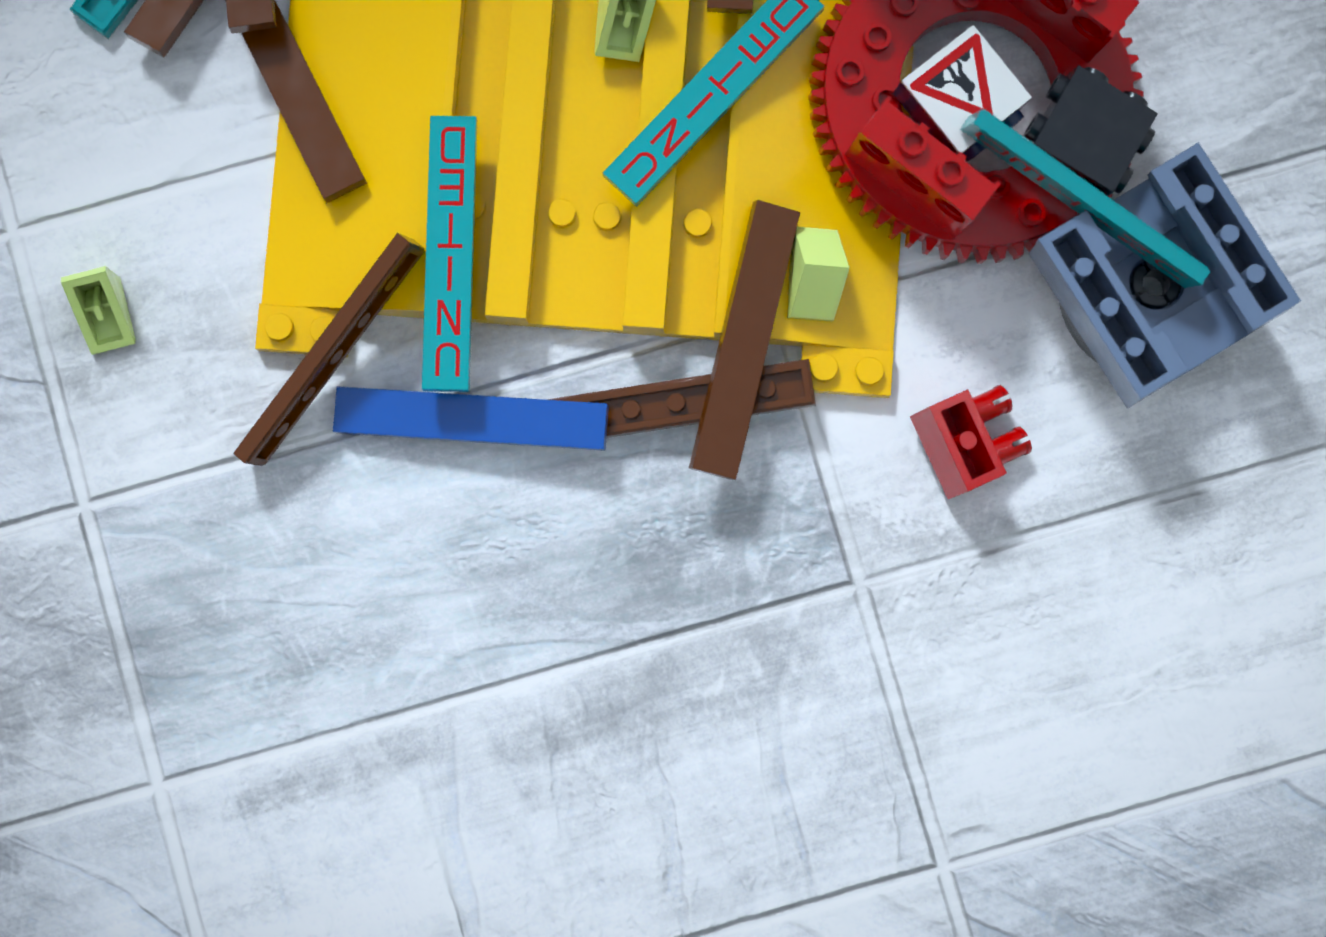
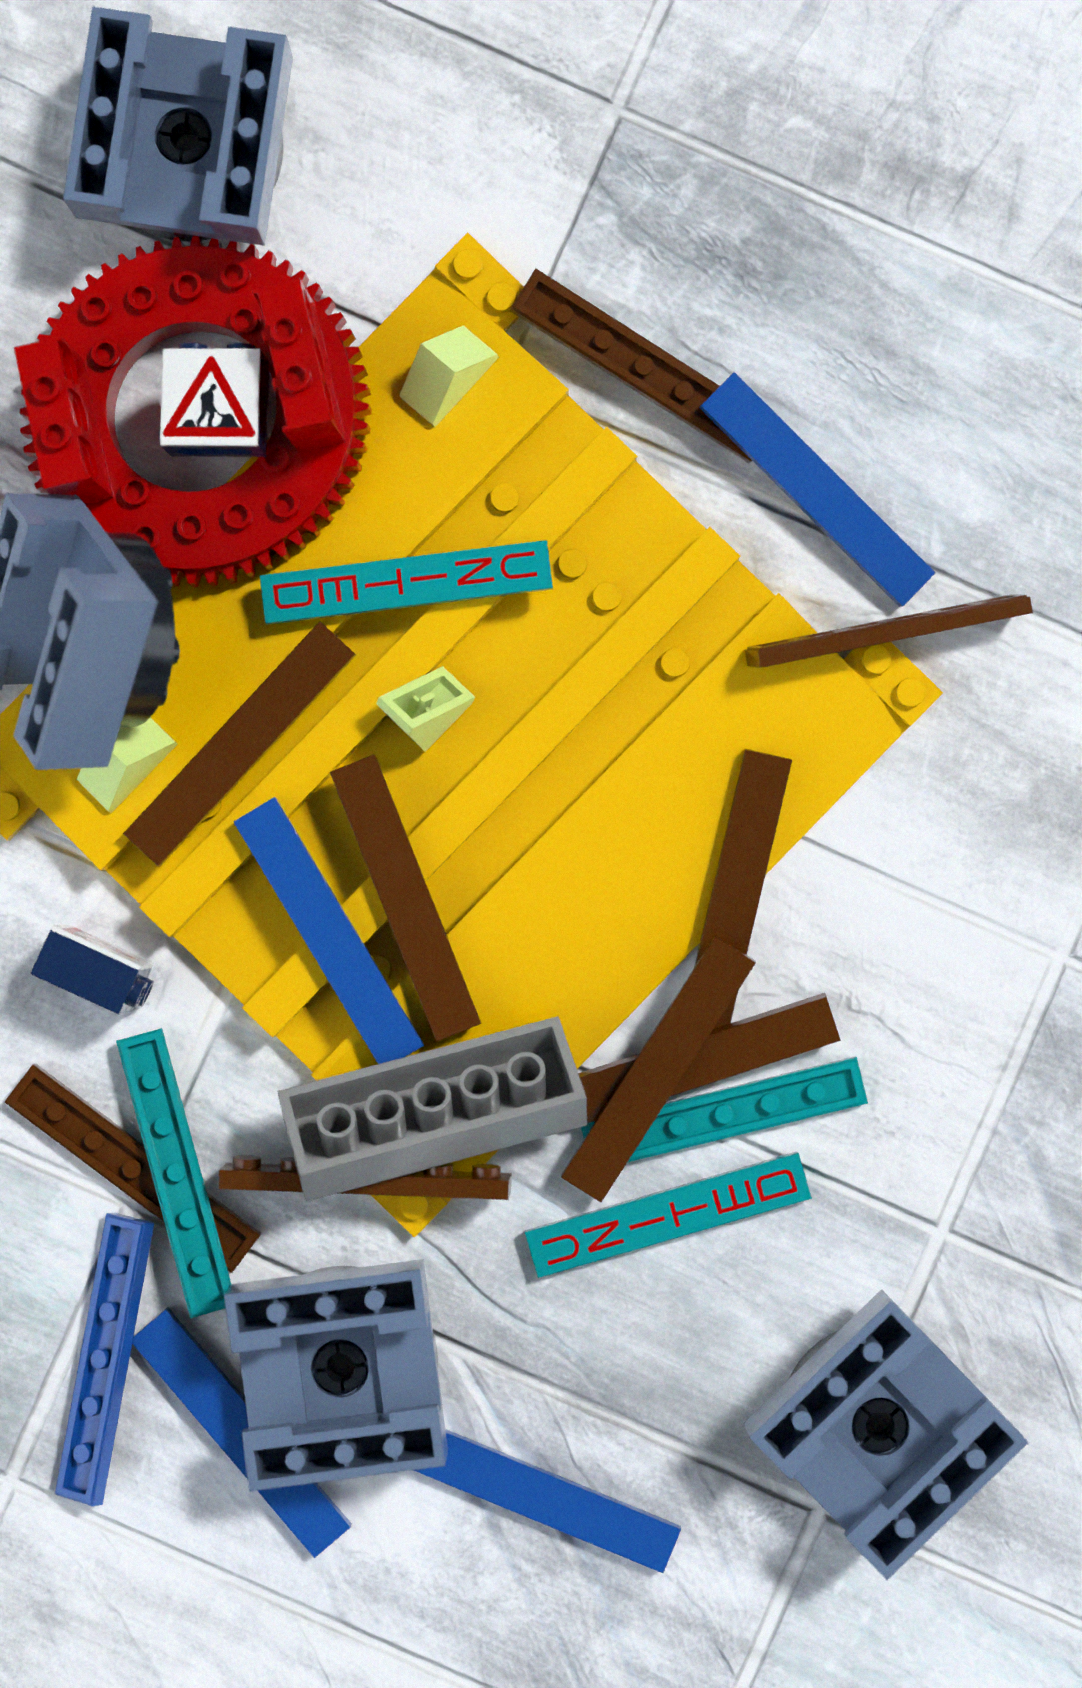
camera: 145 degrees left, 5 degrees up
(100, 308) = (1043, 825): yellowish green slope -> none
(449, 254) = (728, 626): teal tile -> none
(744, 340) = (550, 361): reddish brown tile -> none
(960, 443) = (447, 145): red brick -> none
(1083, 196) = (192, 230): teal tile -> none
(1093, 128) = (136, 290): black brick -> none

